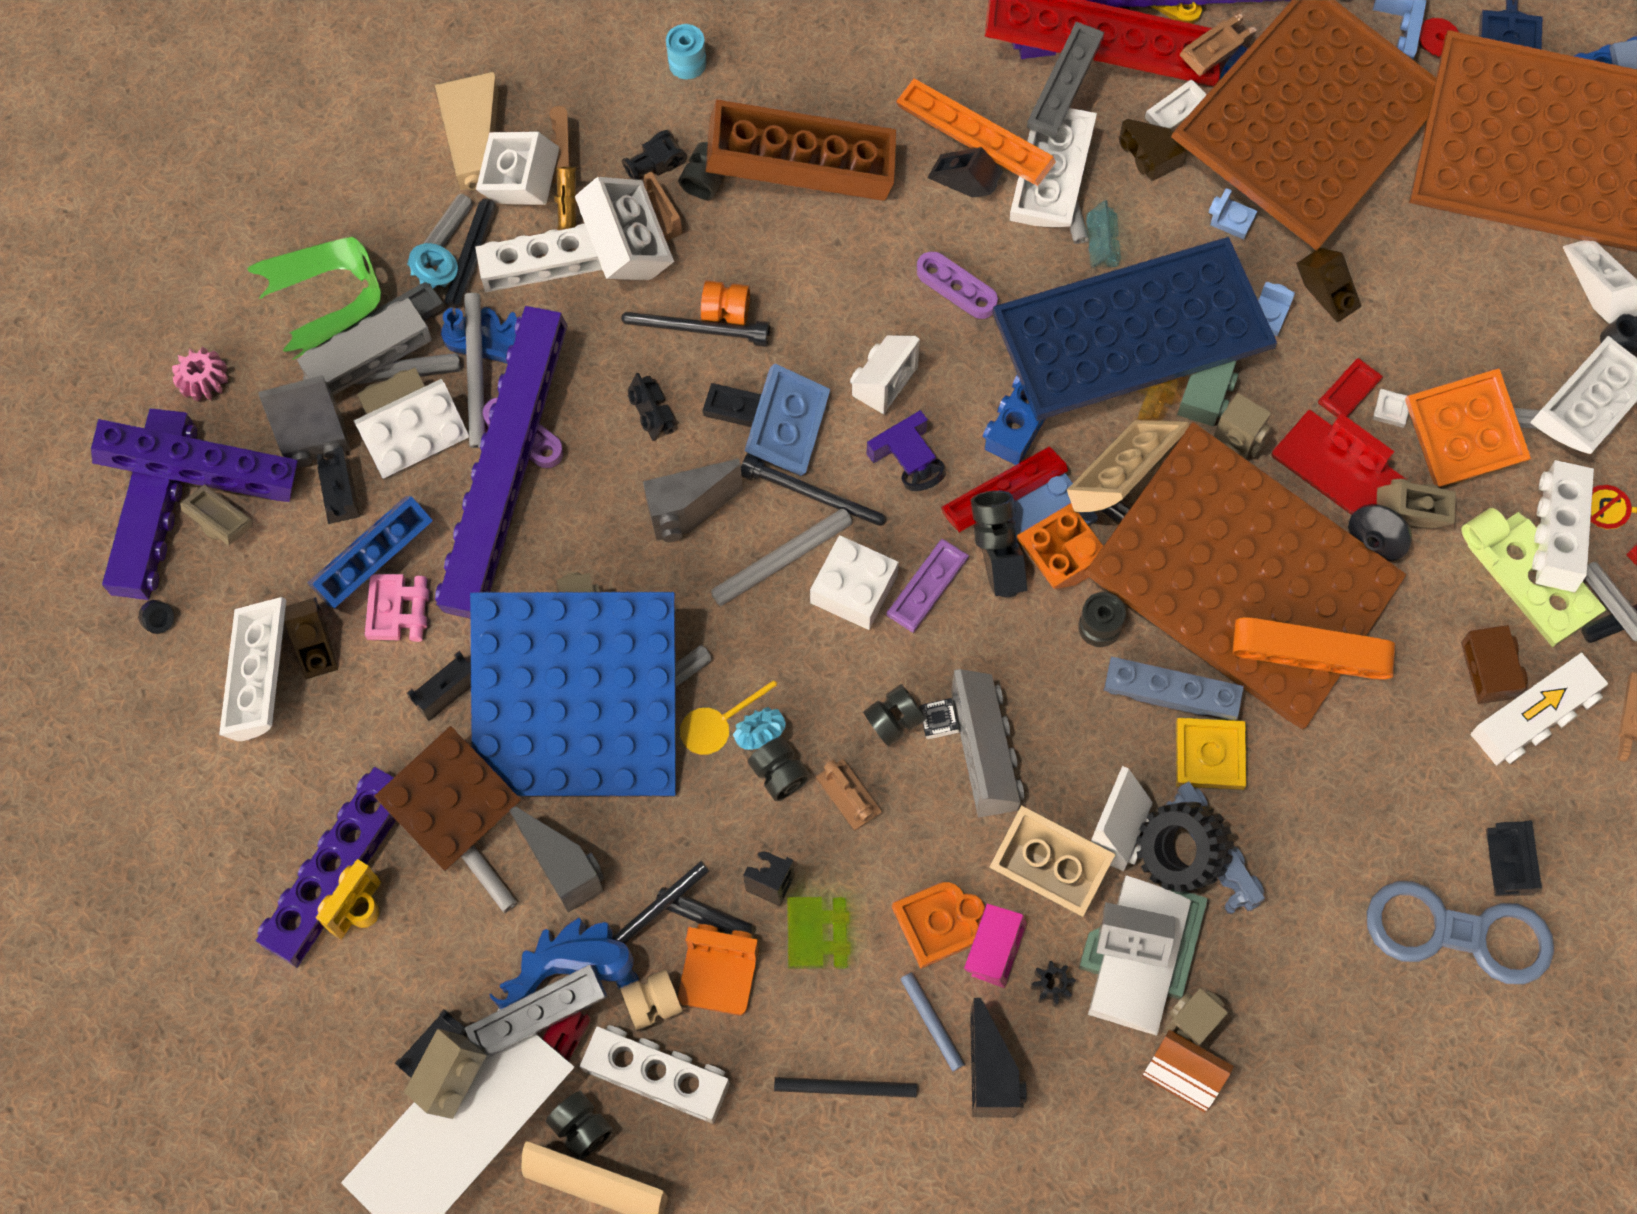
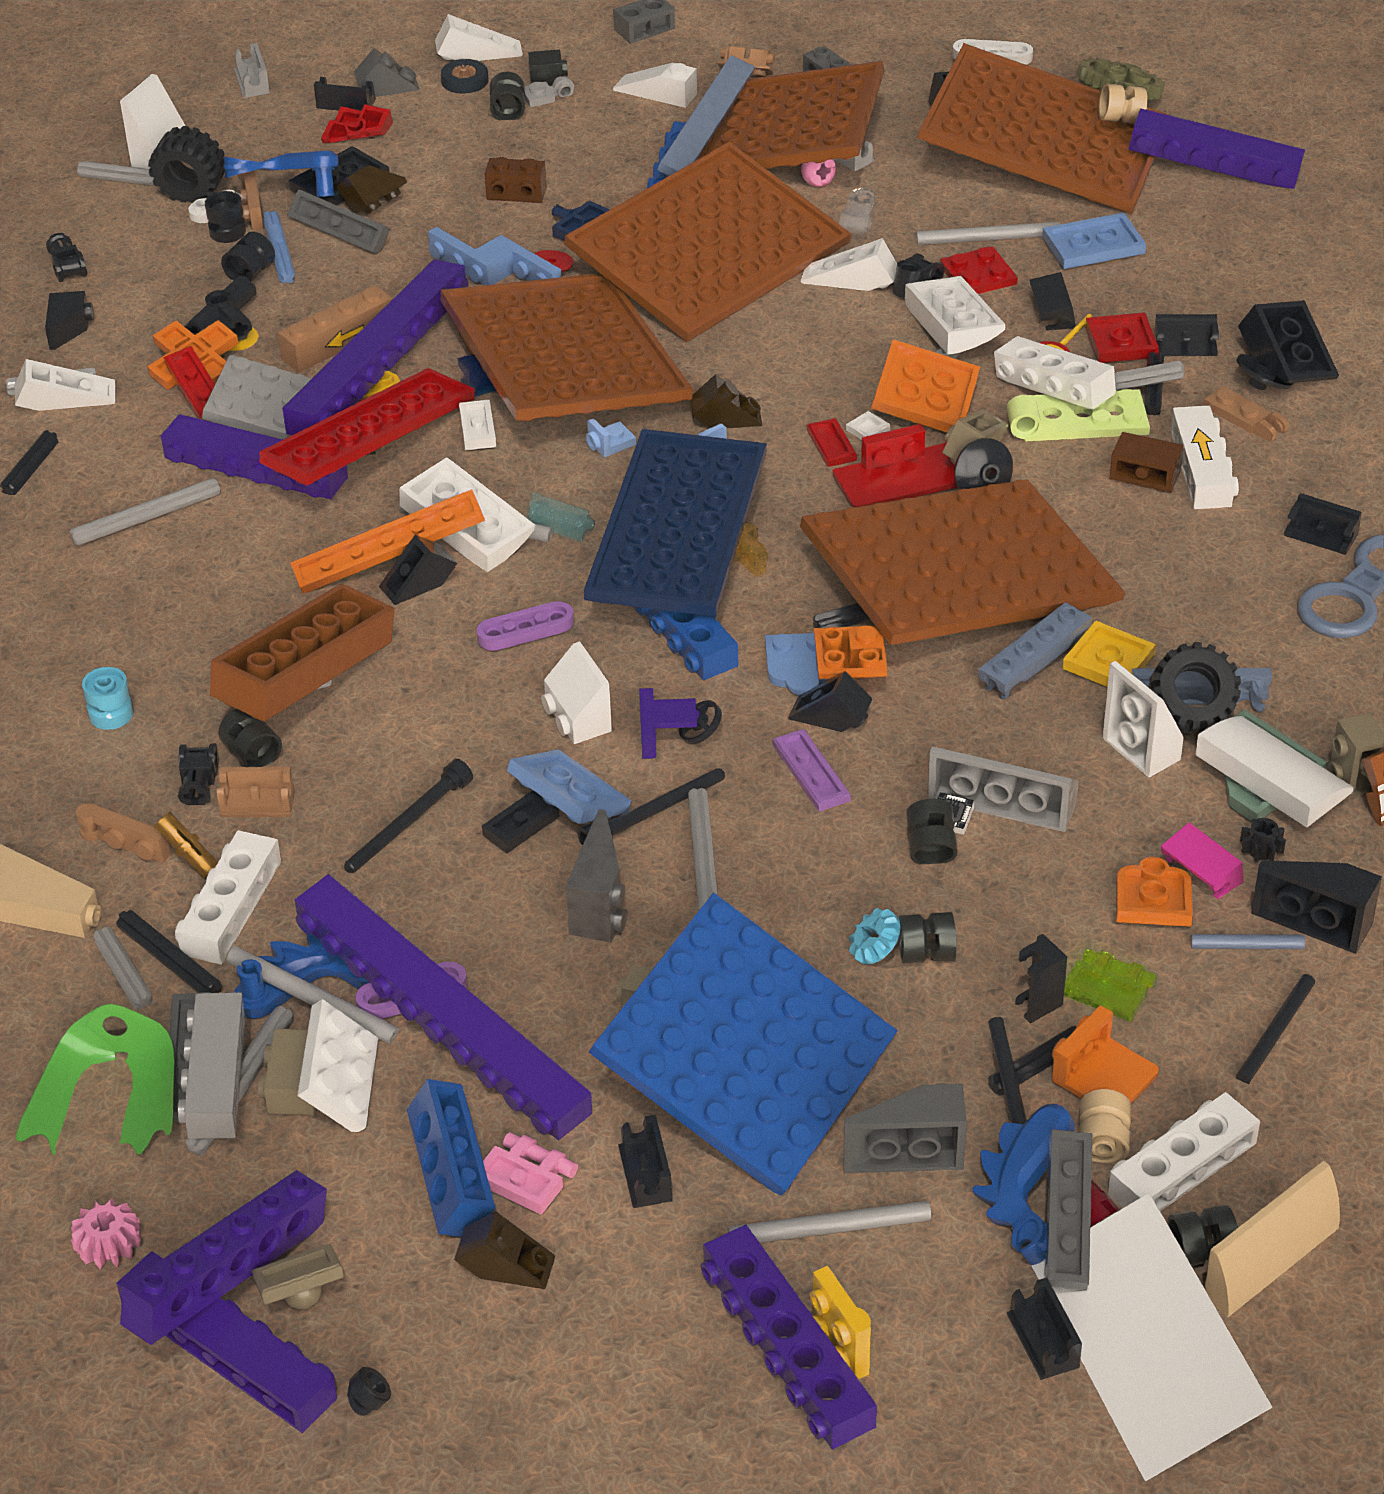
camera: 60 degrees left, 25 degrees down
(252, 670) = (513, 1305): white slope -> none
(305, 420) = (260, 1136): flat silver slope -> none
(337, 487) = (347, 1162): black hinge -> none
(434, 255) = (163, 978): medium azure gear -> none
(445, 1074) = (1092, 1305): dark tan brick -> none
(447, 798) = (784, 1194): reddish brown plate -> none
(517, 168) = (120, 861): white brick -> none
(624, 228) = (267, 808): white brick -> none
(645, 395) = (466, 884): black hinge -> none
(708, 730) = (847, 978): yellow piece -> none
(725, 302) = (405, 780): orange wheel -> none
(848, 794) = (996, 904): medium nougat hinge -> none
(854, 582) = (774, 809): white brick -> none
(994, 520) = (787, 680): pearl dark grey wheel -> none
(1017, 480) = (757, 679): red tile -> none
(1052, 861) = (1151, 783): tan slope -> none
(1065, 80) = (401, 454): dark grey plate -> none
(1101, 619) = (937, 663): pearl dark grey wheel -> none
(1124, 464) = (810, 572): tan slope -> none
(1136, 935) = (1261, 745): light grey hinge -> none
(1152, 148) = (501, 452): dark brown slope -> none
(1206, 392) = (773, 518): sand green slope -> none
(1216, 45) = (445, 370): medium nougat hinge -> none
(1243, 426) = (824, 491): dark tan brick -> none
(1314, 648) = (1063, 543): orange beam -> none

